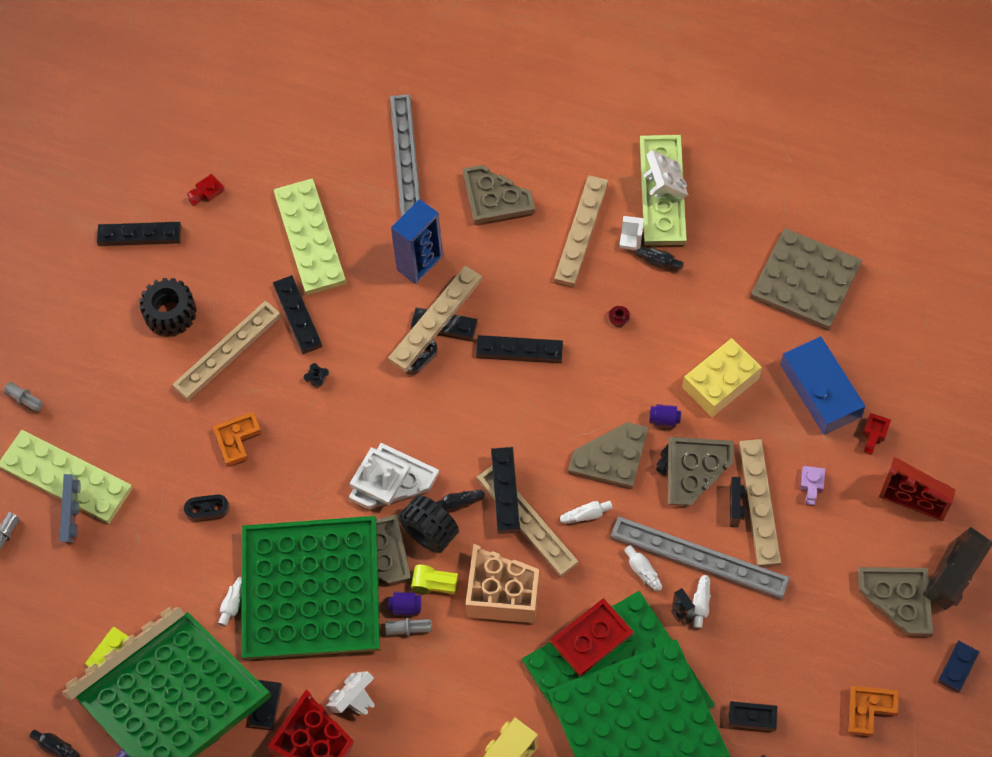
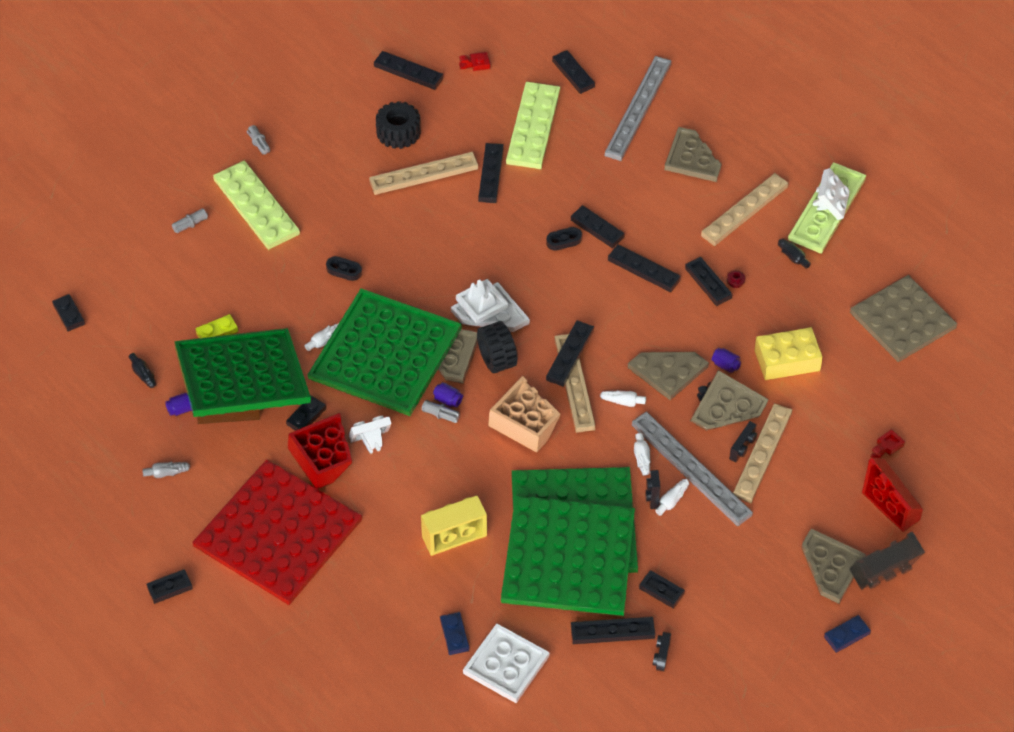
camera: 25 degrees right, 10 degrees down
(70, 508) = (245, 222): sand blue plate -> none
(115, 657) = (217, 330): tan plate -> none
(232, 432) = (391, 229): orange plate -> none
(315, 153) = (573, 72): none -> black plate
(316, 380) = (479, 218): black plate -> none
(417, 241) = (607, 154): blue brick -> none
(427, 579) = (475, 387): neon yellow piece -> none
(435, 319) = (591, 217): tan plate -> none
(458, 500) = (533, 347): black piece -> none
(591, 637) = (571, 477): red plate -> none
(594, 332) = (708, 281): none -> black plate
(631, 233) = (783, 226): white panel -> none
(813, 481) = (813, 456): lavender plate -> none
(822, 385) = (865, 394): blue brick -> none
(865, 703) = (755, 622): orange plate -> none

